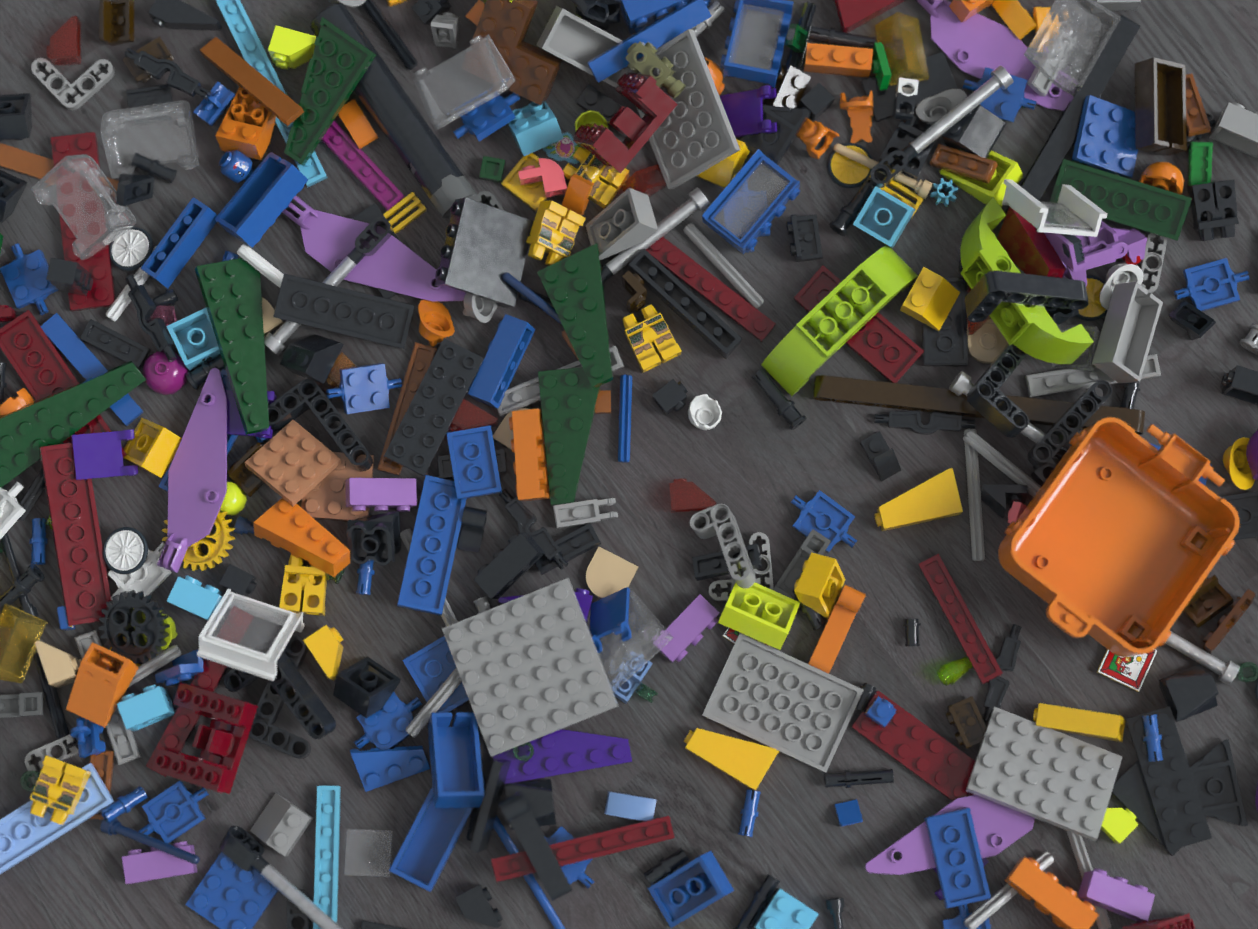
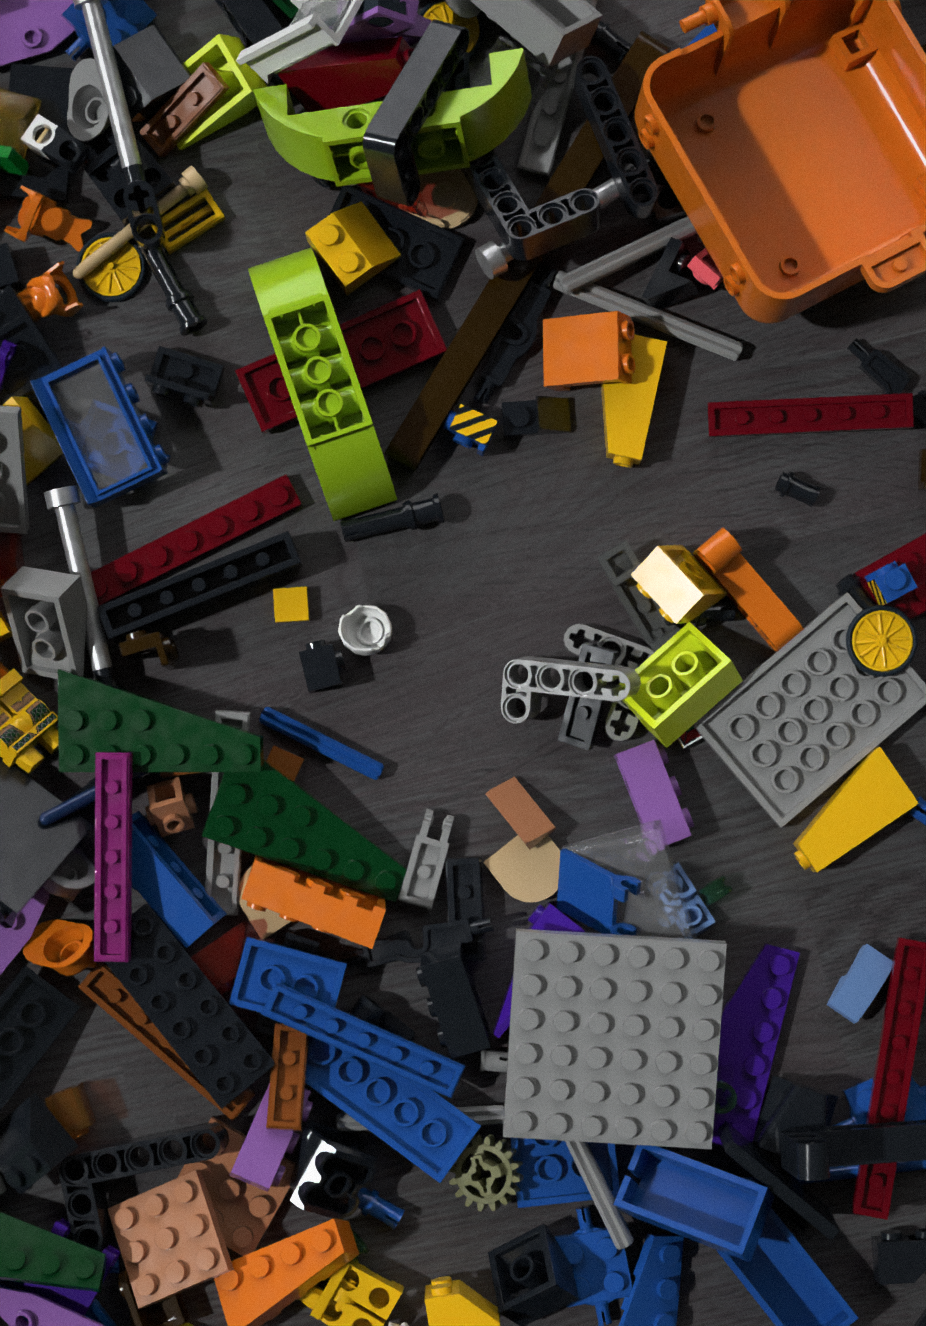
camera: 65 degrees left, 5 degrees up
(364, 388) = (110, 1089): plate -> none
(406, 638) = (486, 1185): none -> olive gear
(419, 487) = (287, 1079): none -> dark orange tile
(461, 520) = (363, 1039): none -> blue tile
(502, 325) = (113, 856): none -> magenta tile
(546, 346) = (173, 813): none -> nougat brick
(639, 554) = (521, 812): none -> nougat slope
(648, 332) = (216, 656): yellow hips -> none
(688, 497) = (472, 707): clear red slope -> none
(699, 362) = (291, 604): none -> yellow tile
(723, 265) = (170, 507): light grey axle -> none
(824, 517) = (587, 533): blue plate -> none
(843, 723) = (881, 640): none -> yellow wheel
(855, 420) = (470, 428): none -> brick
(884, 217) = (207, 254): medium azure brick -> none
(934, 466) = (587, 350): none -> orange panel
(940, 197) = (205, 149): medium azure gear -> none
(953, 671) = (875, 458): clear neon green cone -> none

